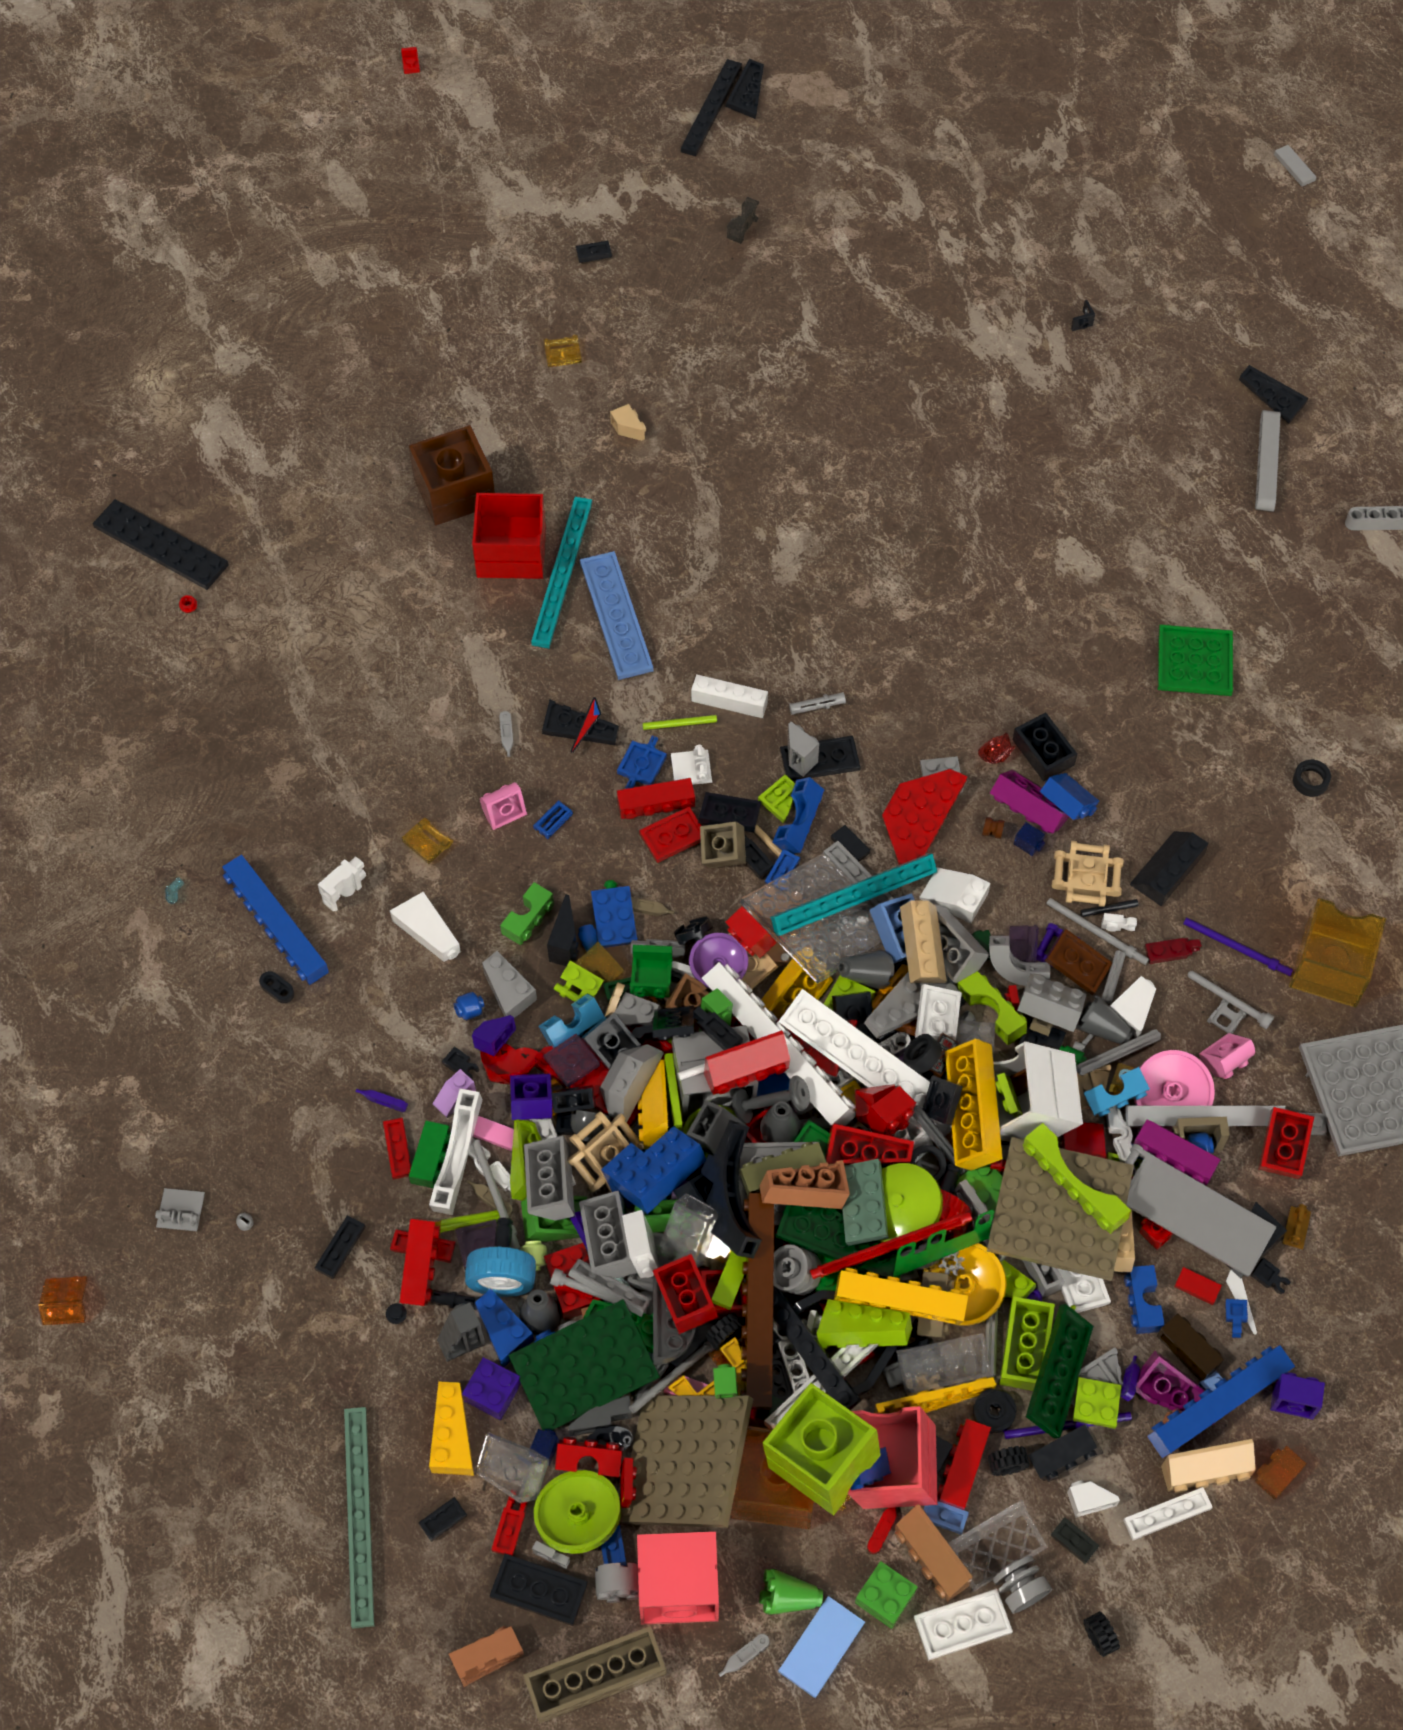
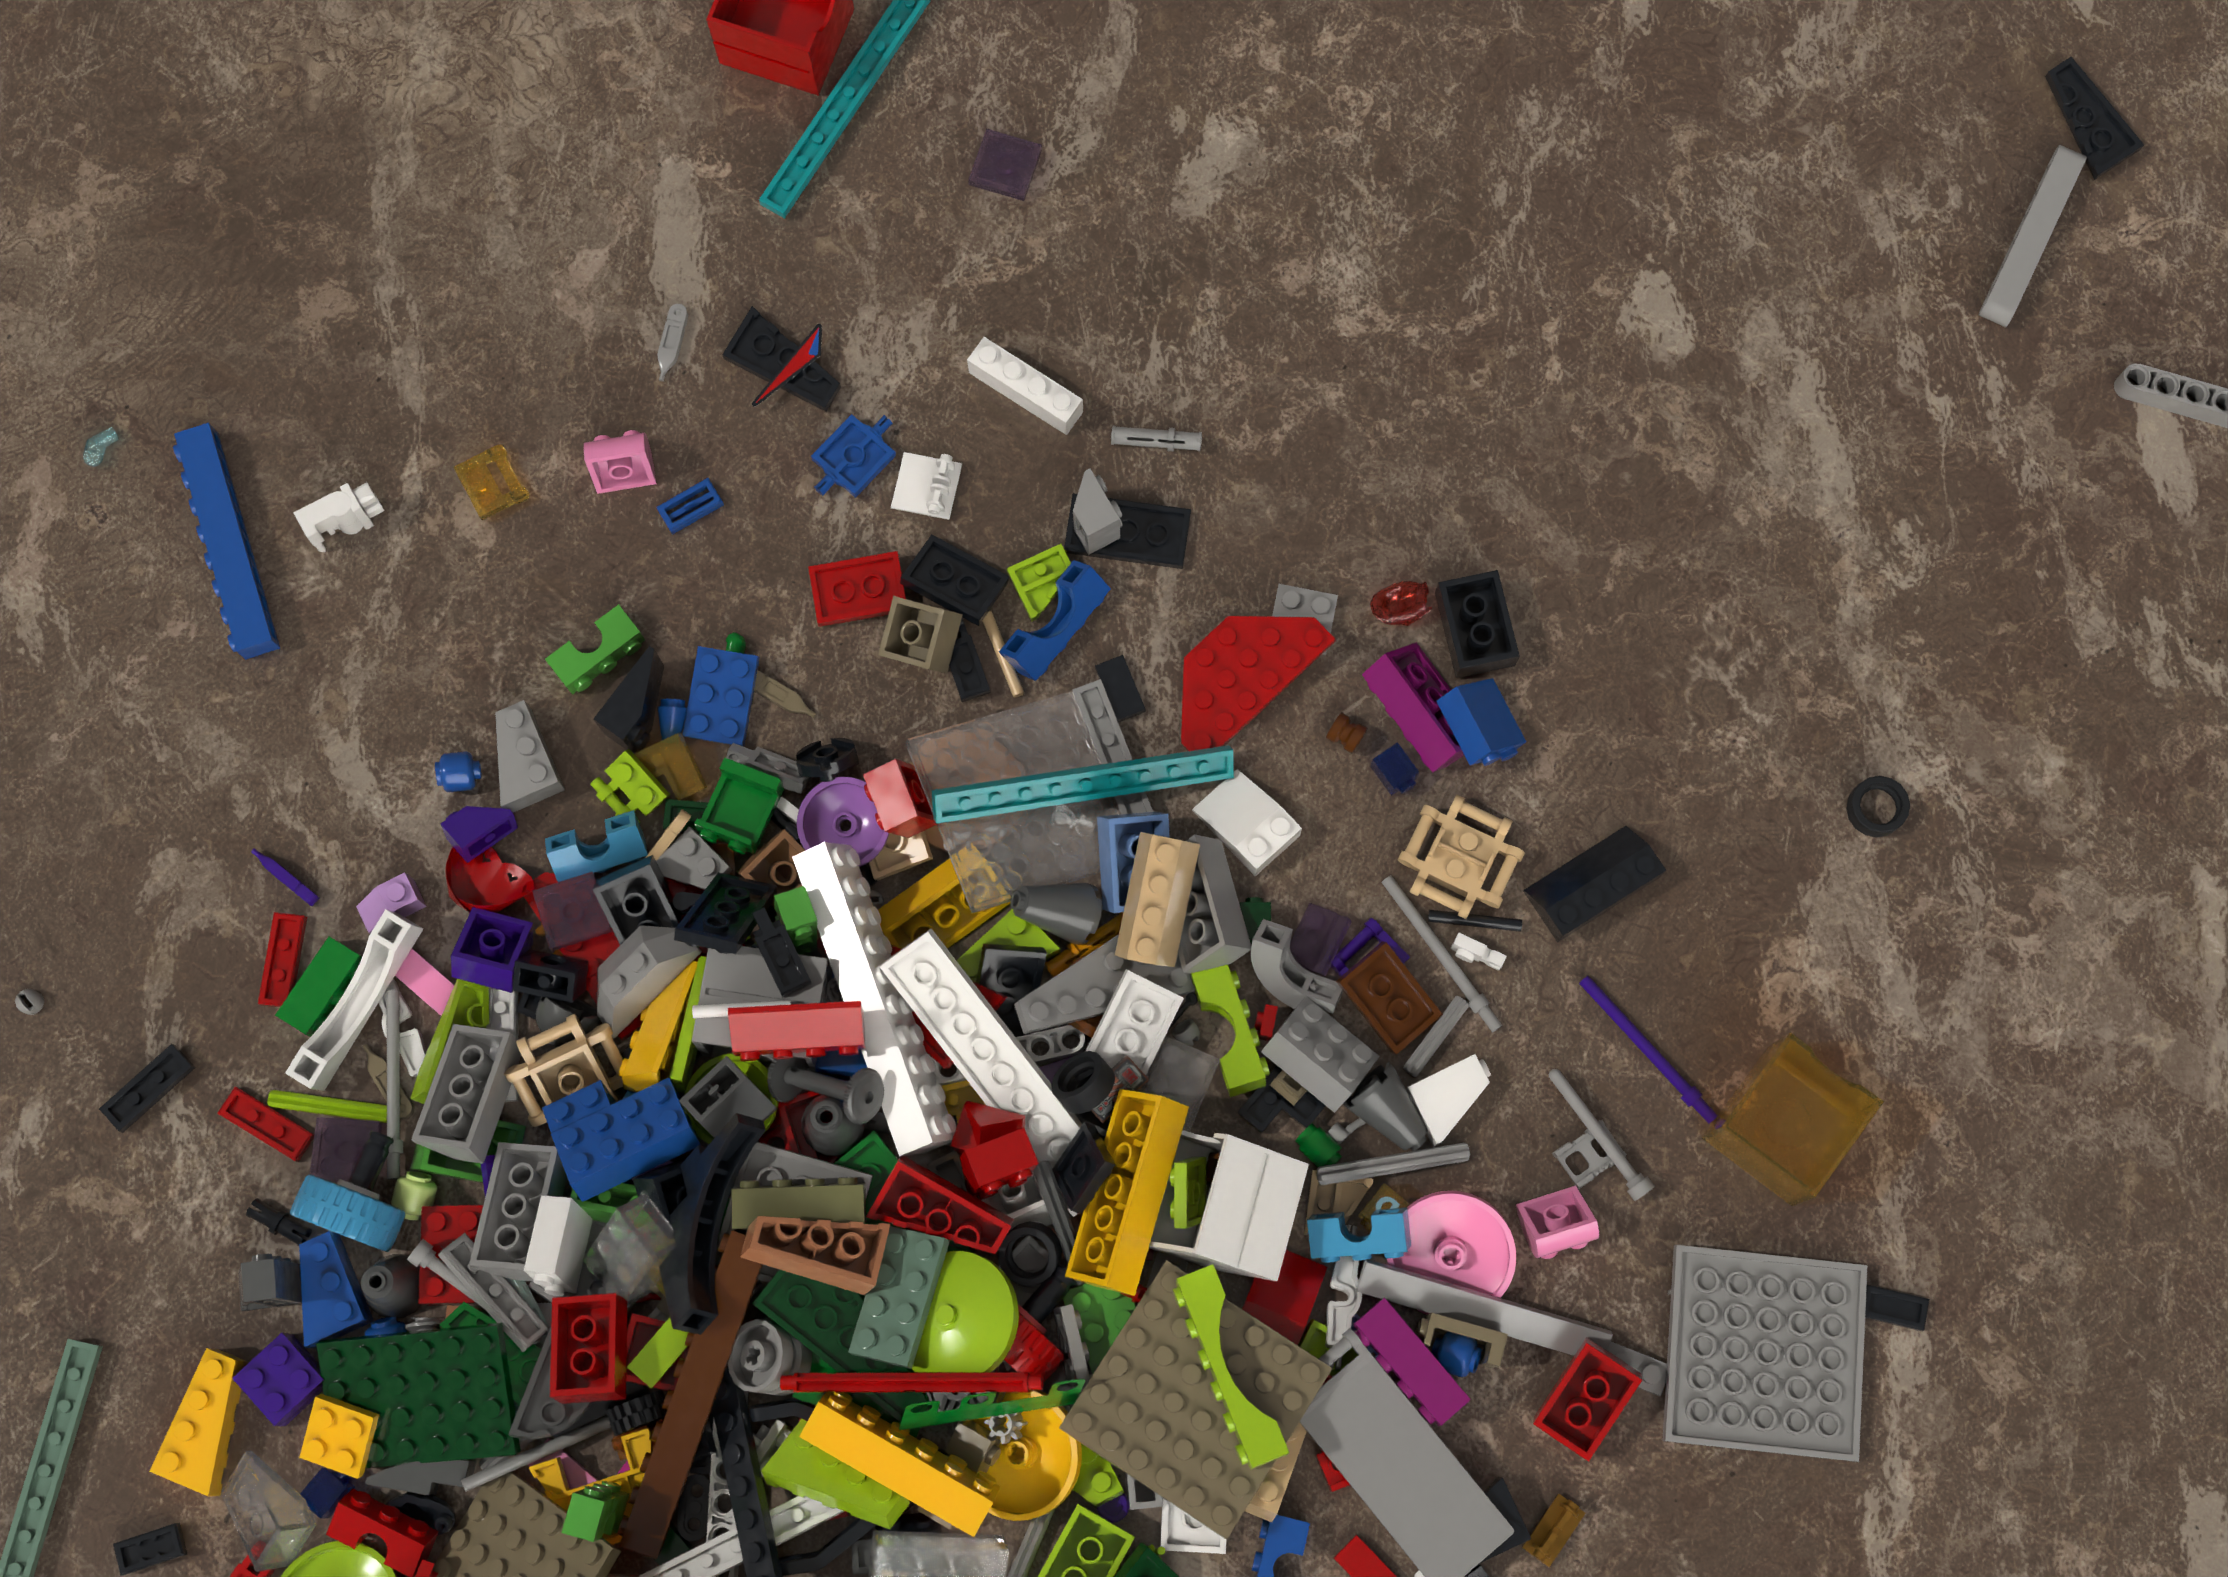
camera: 20 degrees right, 15 degrees up
(277, 988) = (195, 651): black plate -> none
(396, 1313) = (192, 1216): black plate -> none
(419, 1261) = (246, 1150): red wedge -> none
(426, 926) = (441, 619): white slope -> none
(458, 1060) = (412, 855): black plate -> none
(542, 1406) = (339, 1436): none -> yellow plate
(616, 615) = (904, 194): medium blue plate -> none
(655, 798) = (852, 522): red brick -> none
(669, 583) = (1005, 164): none -> clear purple plate
(679, 722) = (936, 404): lime bar -> none
(783, 865) = (1001, 696): blue plate -> none
(1171, 949) = (1542, 1020): dark red hinge -> none
(1195, 660) = (1775, 548): green plate -> none

